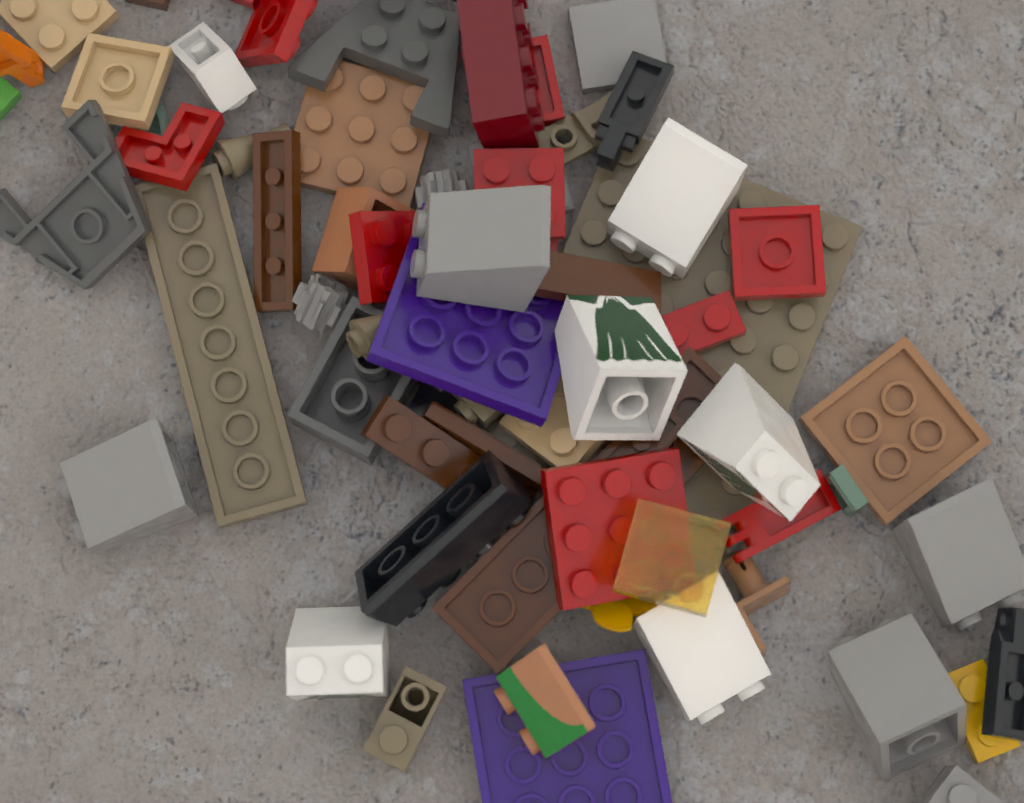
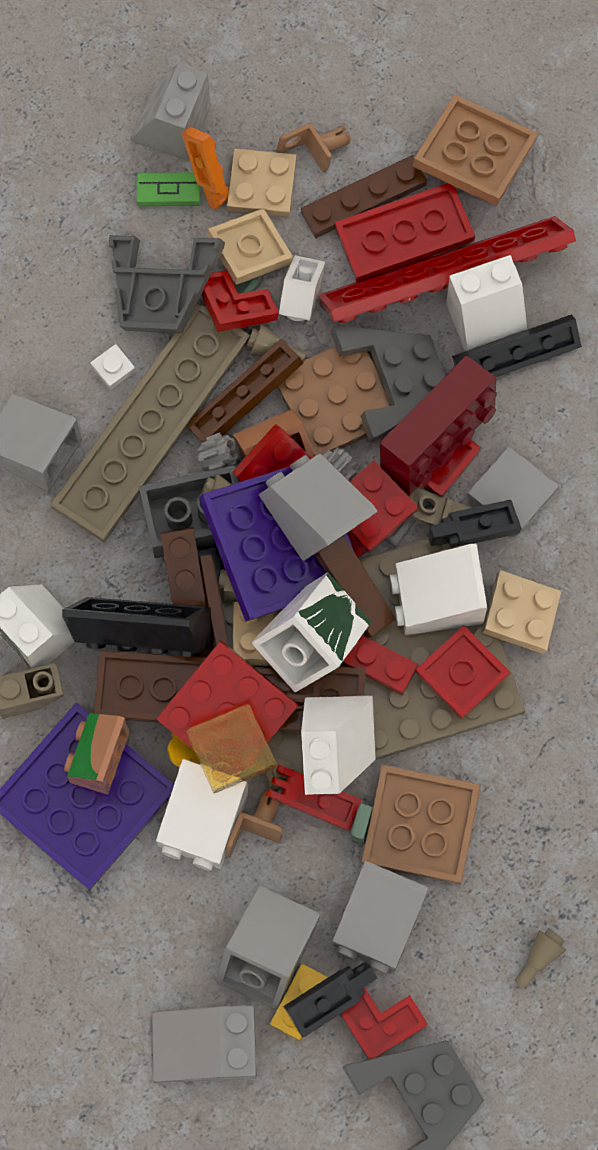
camera: 50 degrees right, 5 degrees down
(120, 334) = (113, 367): none -> white plate
(763, 137) = (521, 612): none -> tan plate

